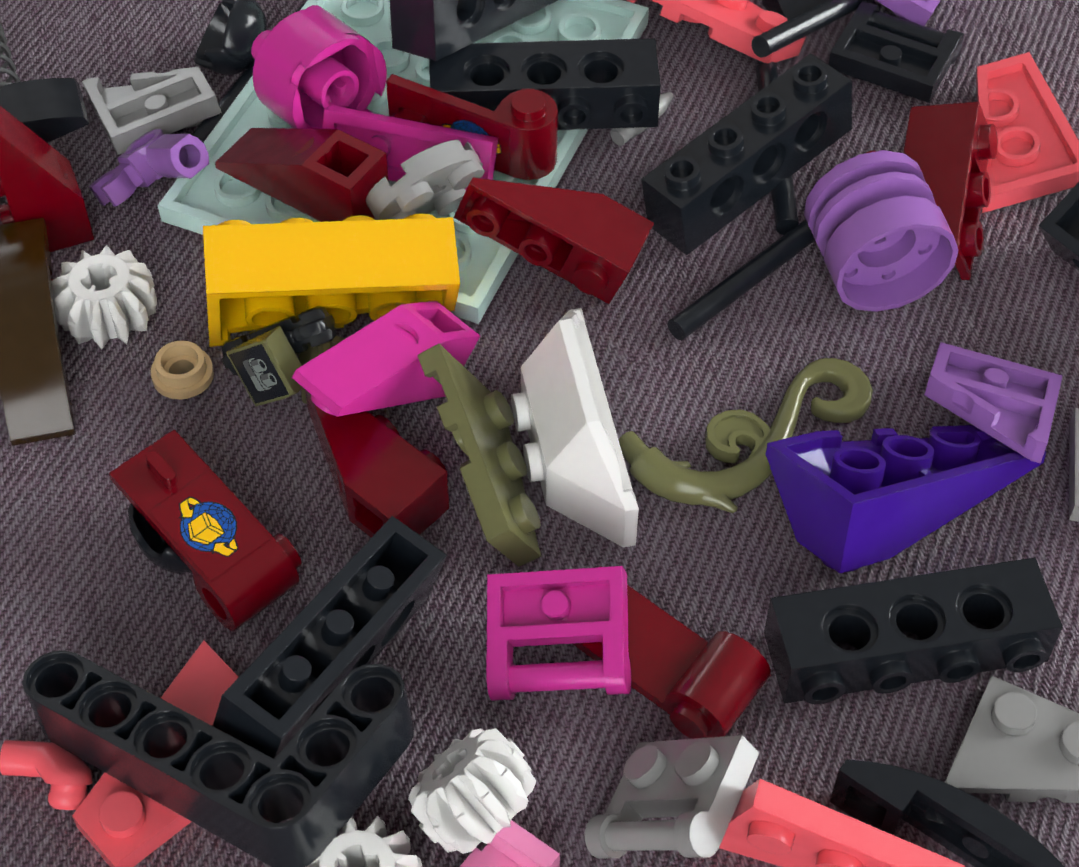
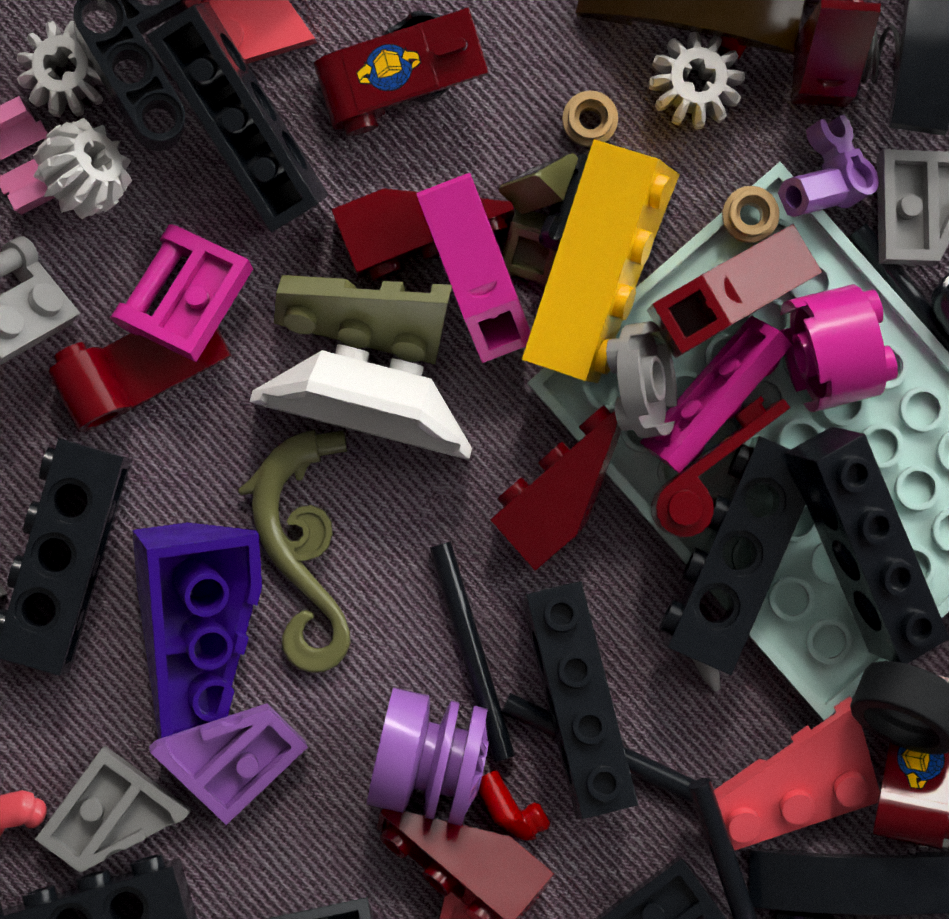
camera: 115 degrees right, 35 degrees up
(220, 194) = (763, 202): none -> tan plate

